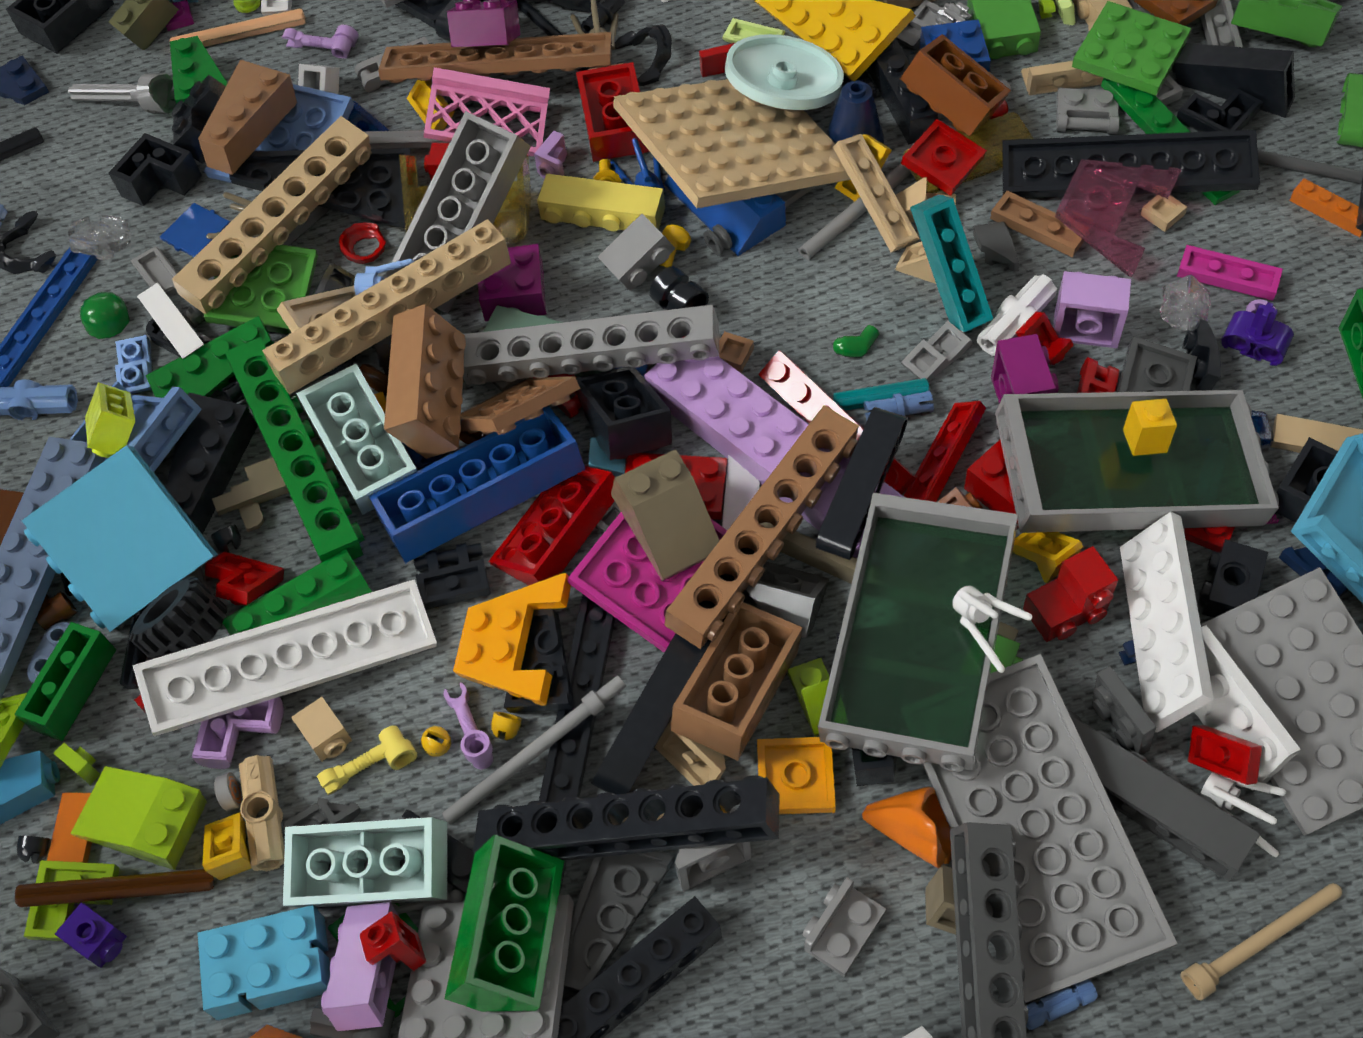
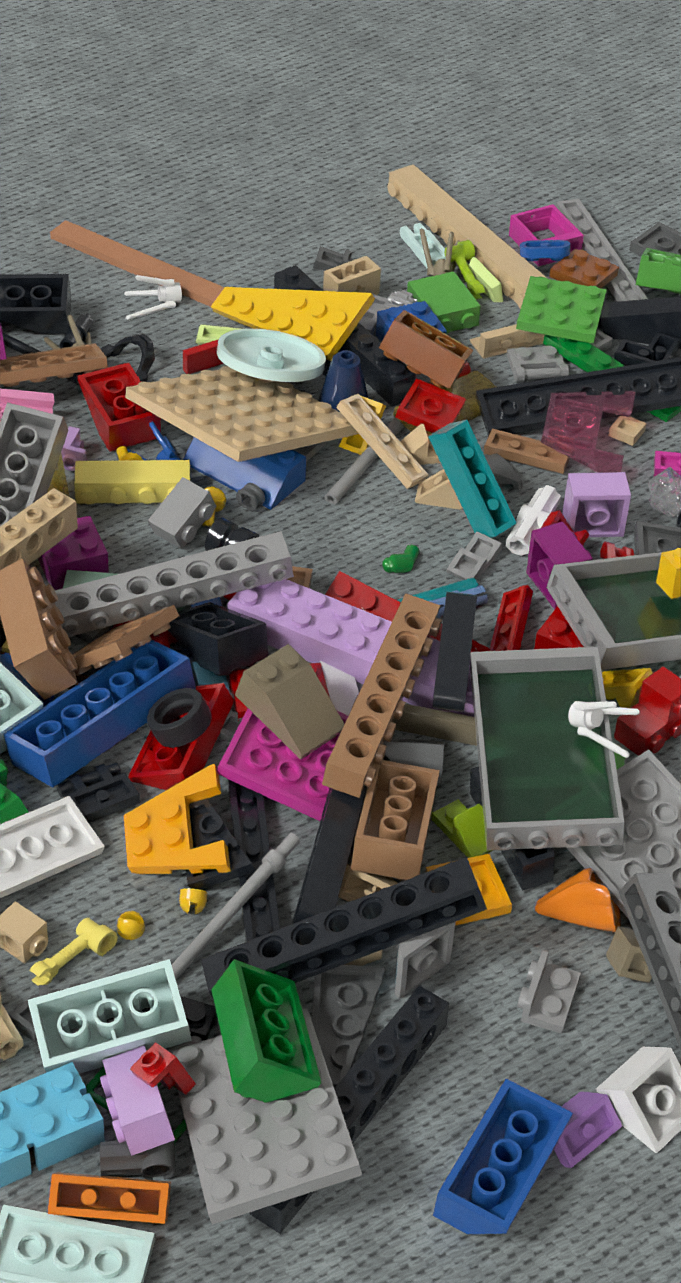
camera: 25 degrees left, 15 degrees down
(475, 743) = (174, 915): lavender brick -> none
(560, 519) = (187, 728): none -> black tyre

